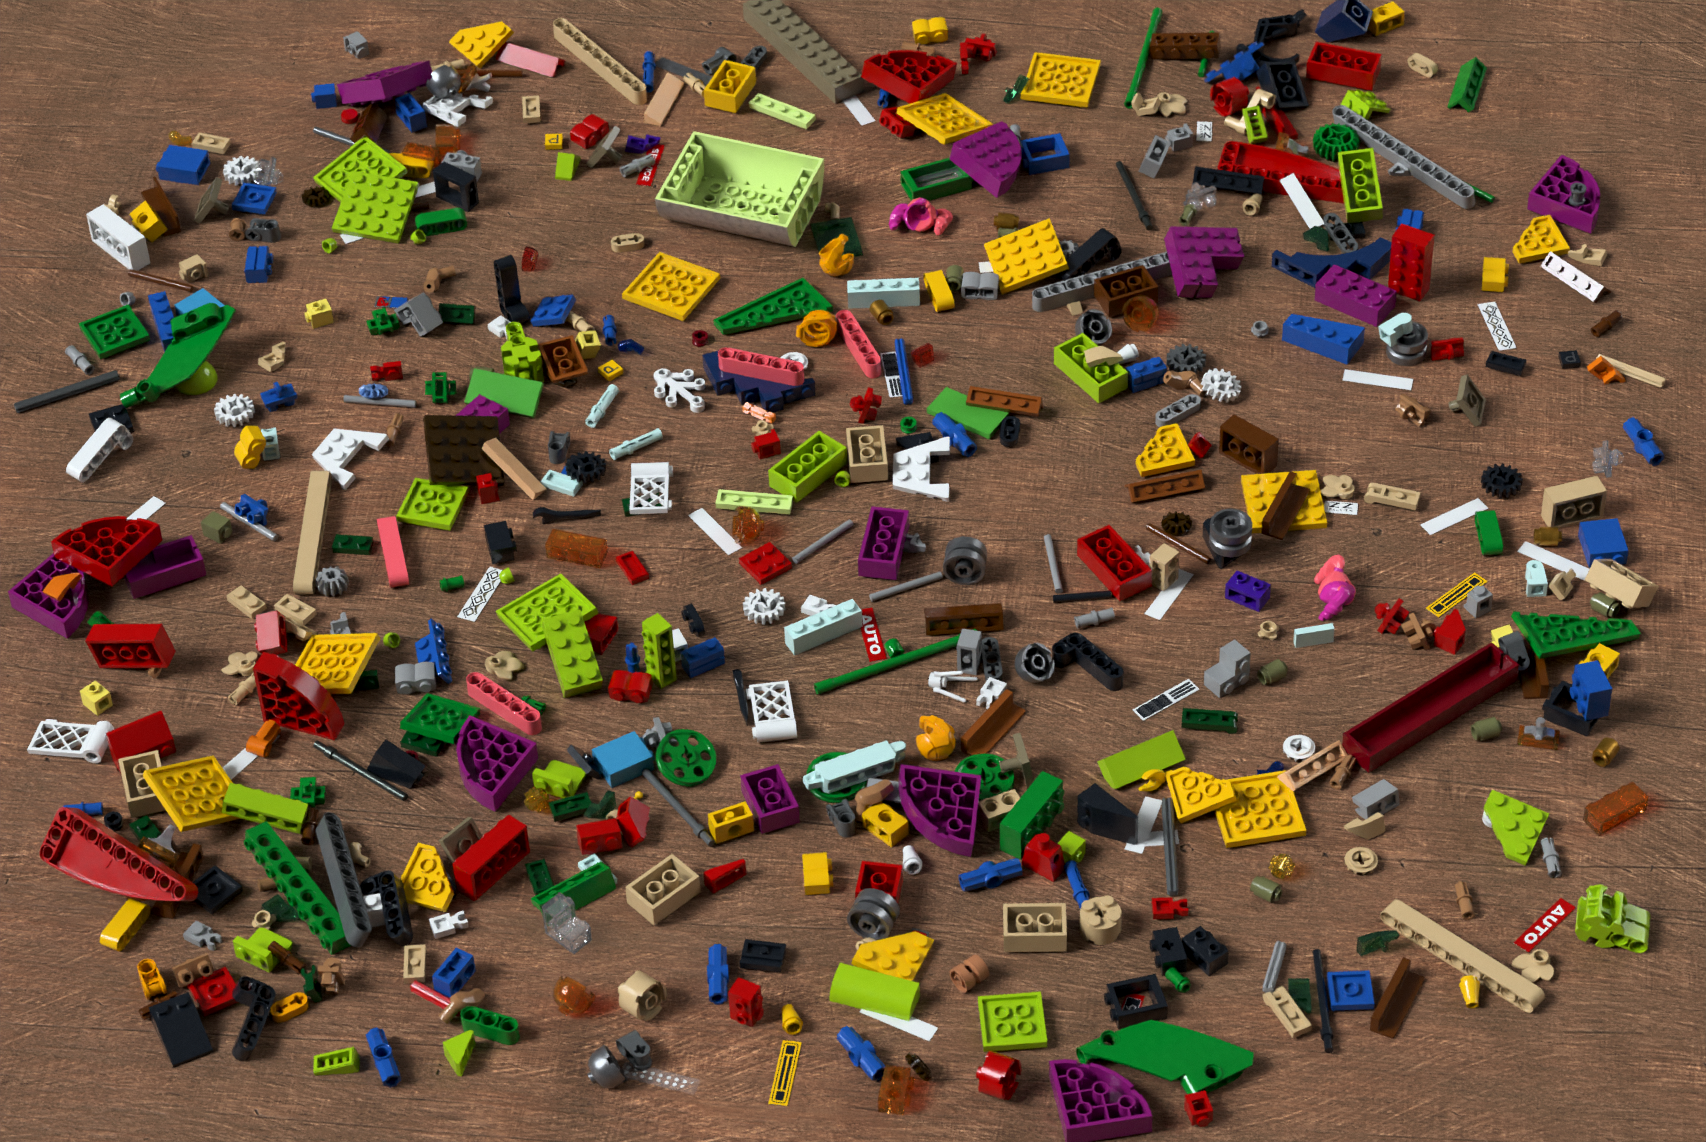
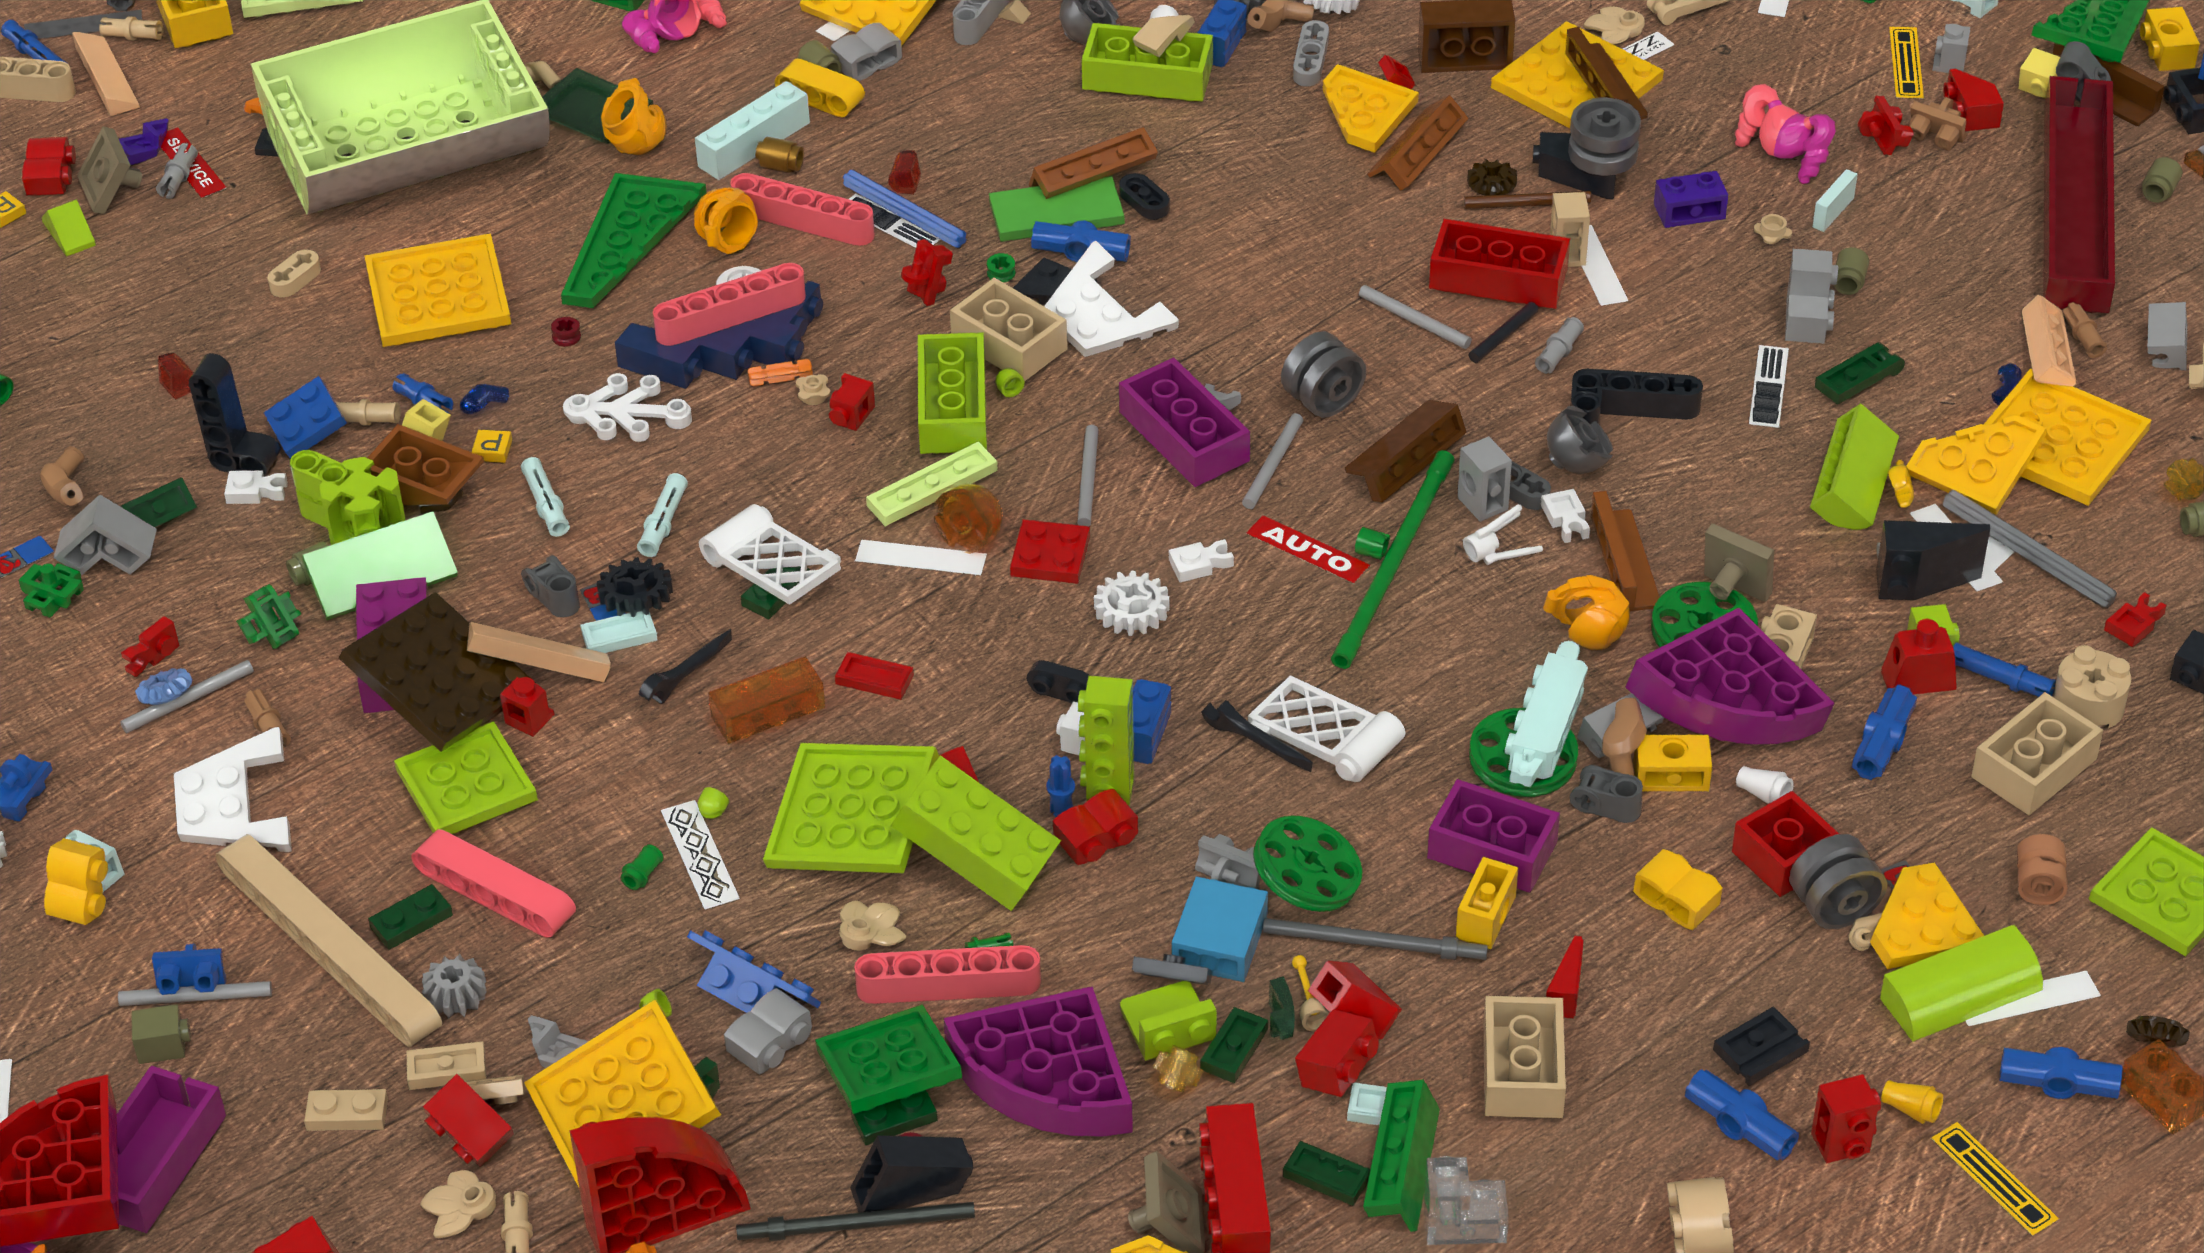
camera: 45 degrees left, 0 degrees up
(499, 542) = (646, 763): black brick -> none
(823, 627) = (1247, 576): light aqua brick -> none
(1031, 814) = (1846, 622): green brick -> none
(1293, 742) = (1998, 327): white gear -> none

